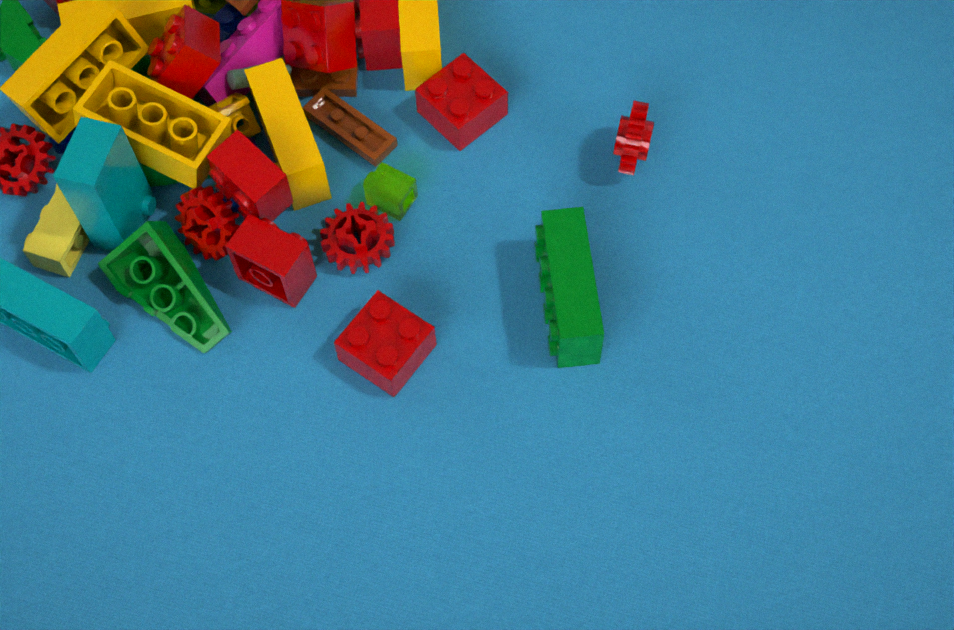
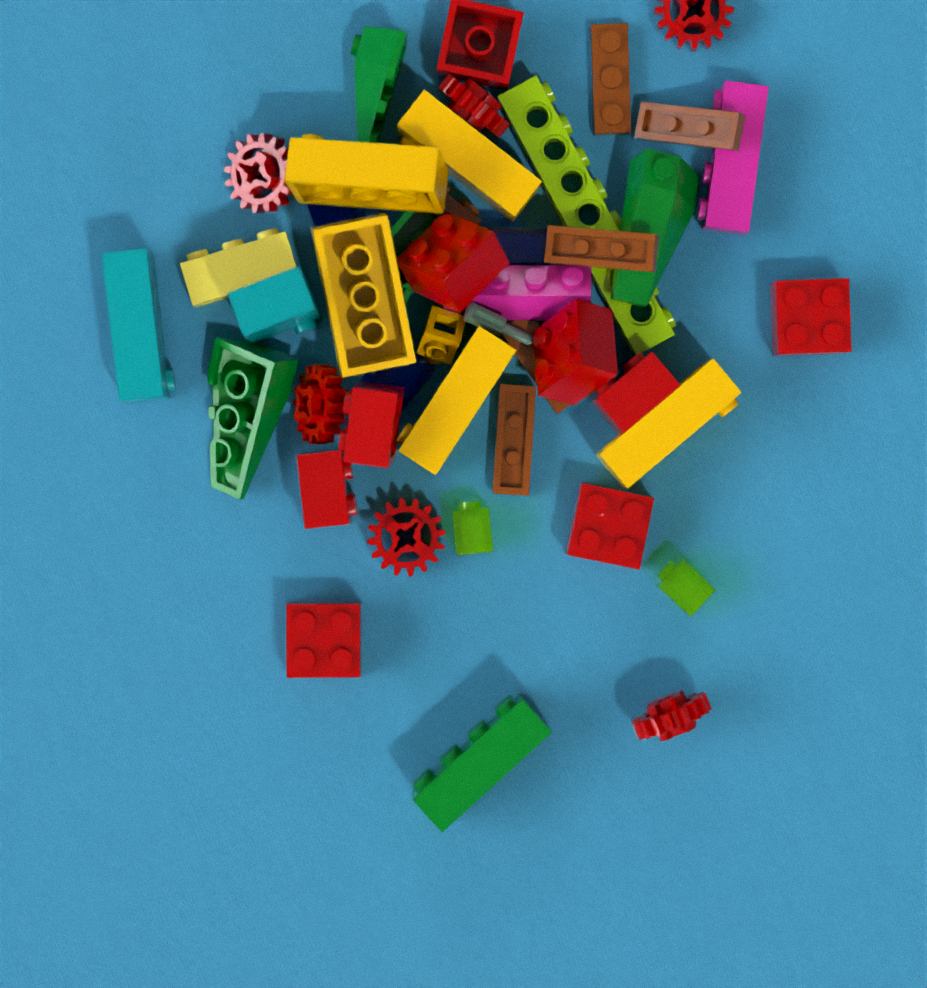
camera: 55 degrees right, 25 degrees up
(544, 84) = (684, 586): none -> clear neon green brick

